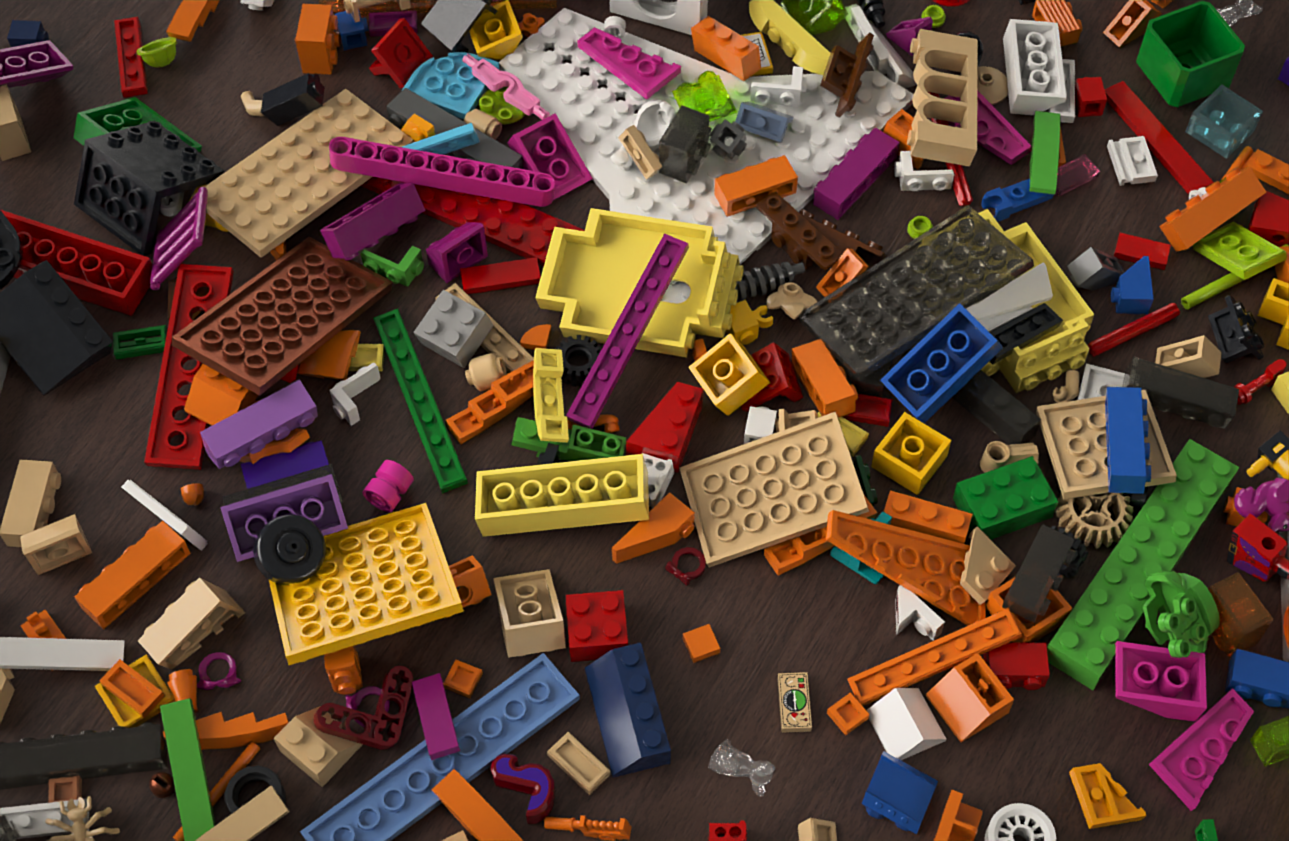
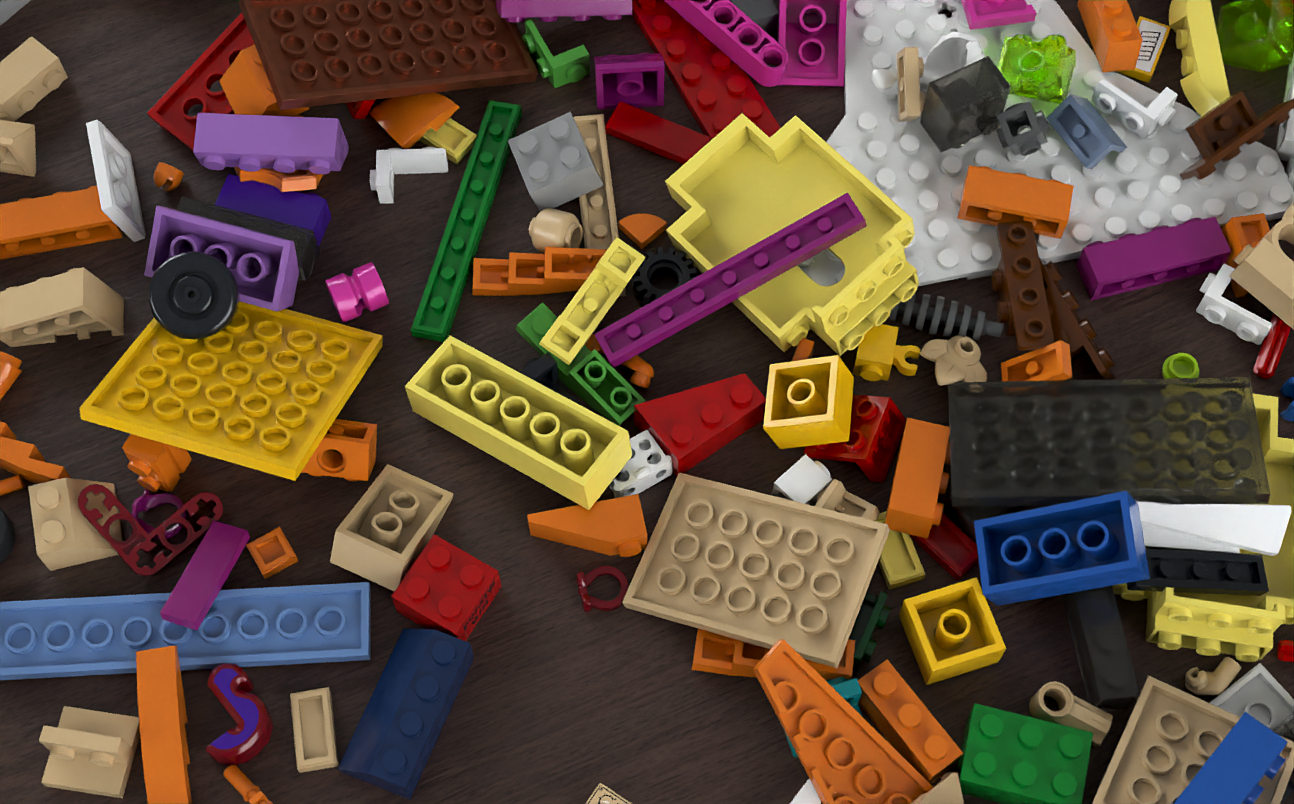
camera: 35 degrees right, 5 degrees up
(231, 679) = (53, 396): magenta piece -> none
(701, 643) = (546, 688): orange tile -> none

